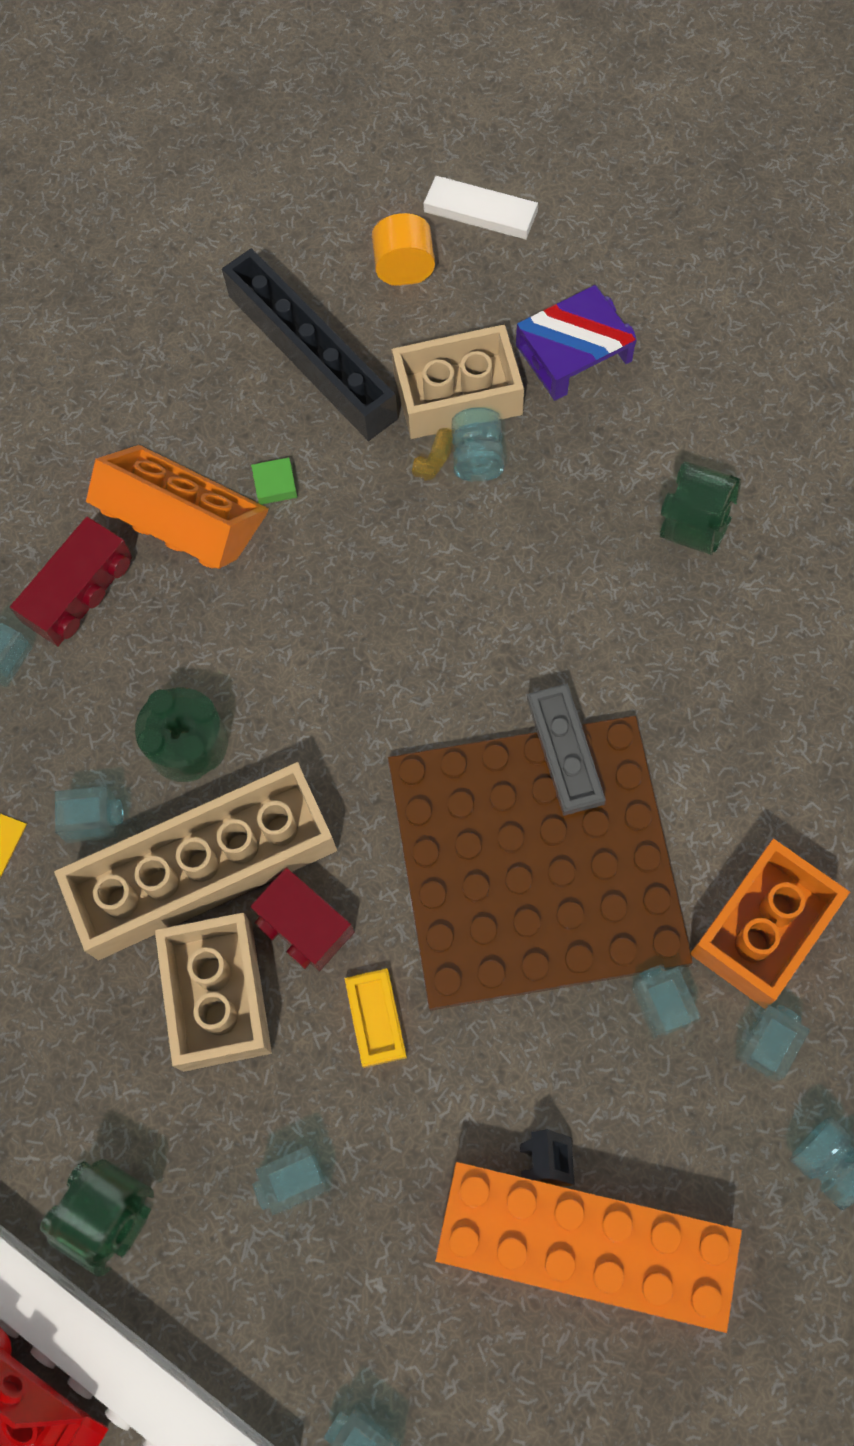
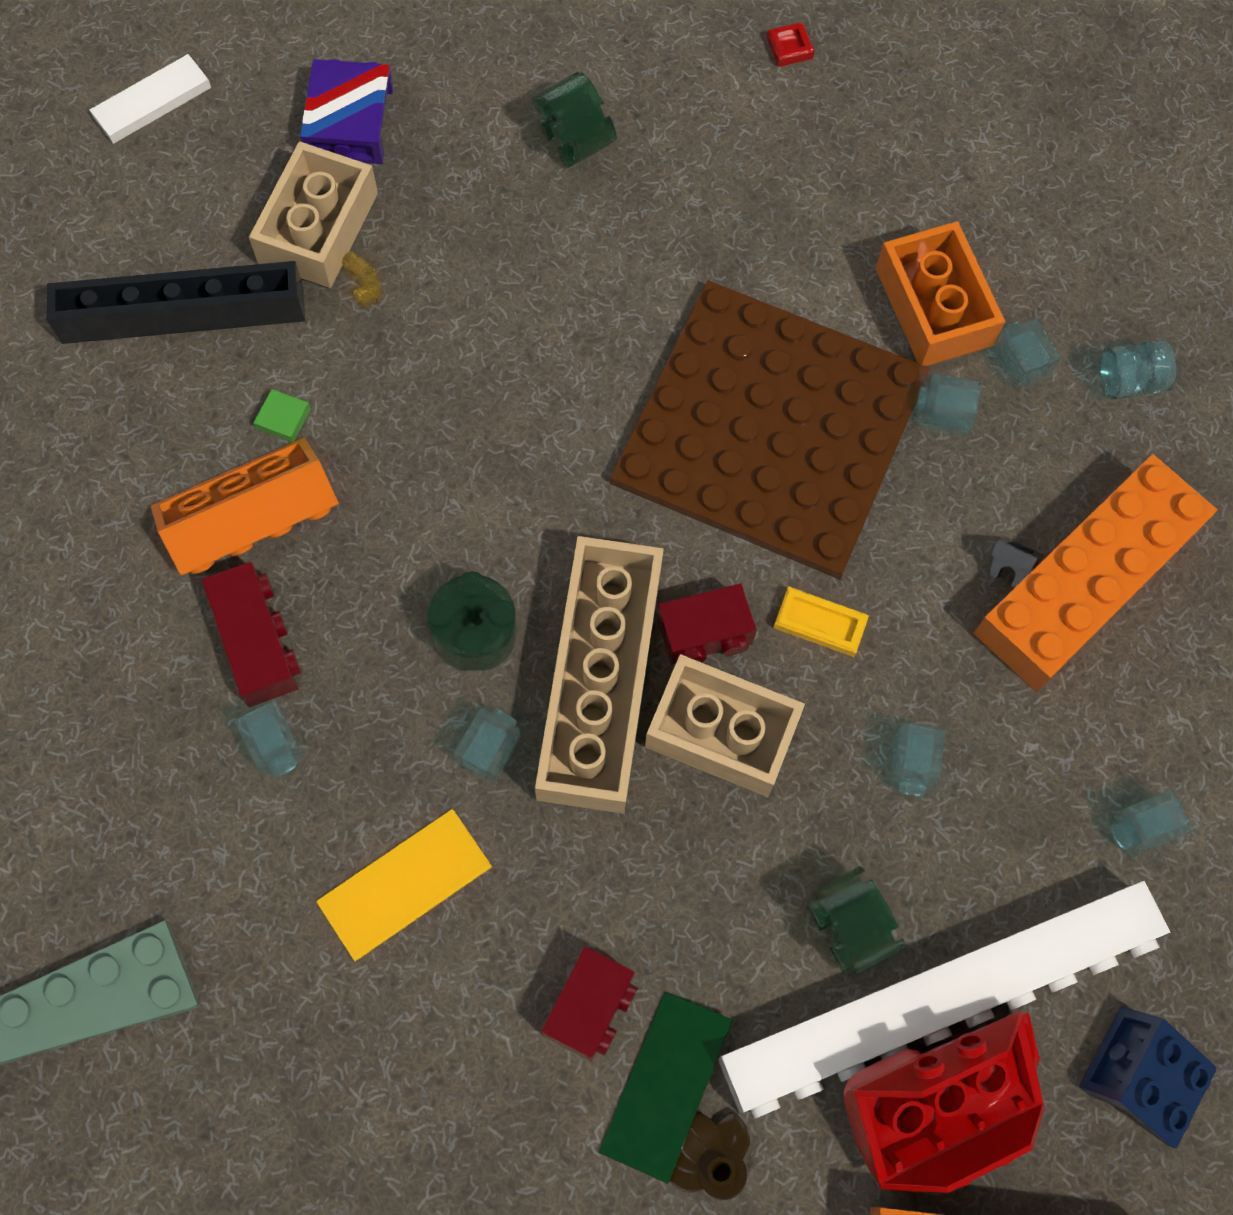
camera: 65 degrees left, 0 degrees up
(403, 249) = (147, 175): light orange piece -> none
(477, 444) = (380, 236): clear light blue wheel -> none
(565, 749) = (703, 341): dark grey tile -> none

